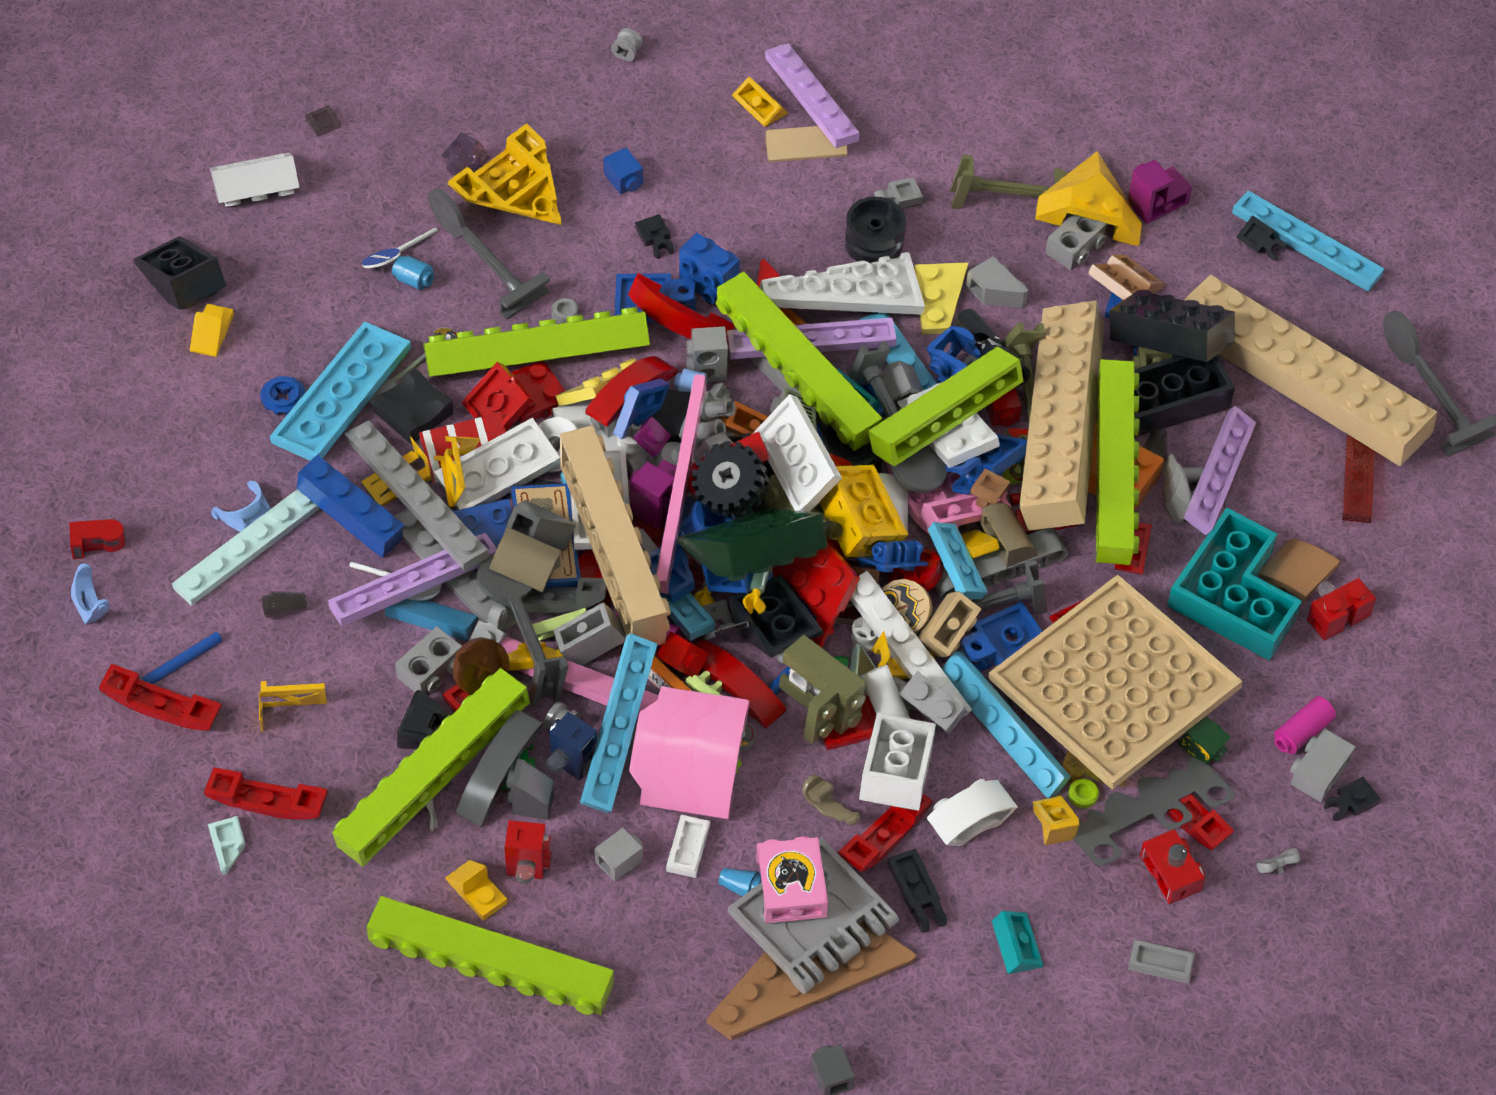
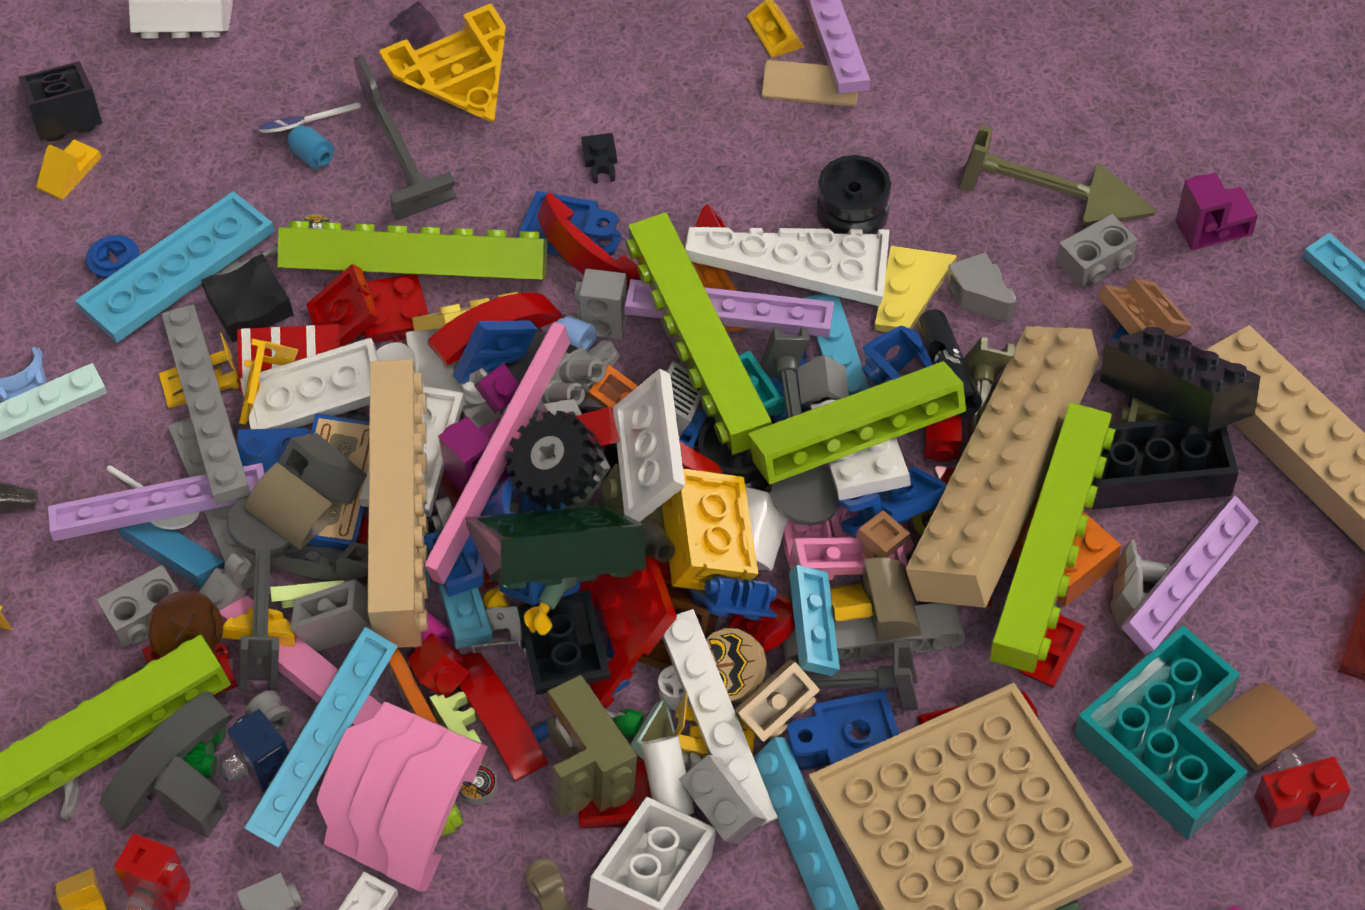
camera: 20 degrees right, 0 degrees up
(349, 506) = (124, 399): blue brick -> none
(419, 720) = (98, 673): black piece -> none
(563, 308) = (466, 218): light grey tile -> none
(623, 171) = (588, 77): blue brick -> none
(706, 266) = (636, 194): blue brick -> none
(902, 192) = (902, 159): light grey plate -> none
(1092, 194) = (1133, 202): yellow wedge -> none
(1157, 442) = (1122, 523): clear smoke cone -> none
(1258, 236) = (1327, 290): black plate -> none

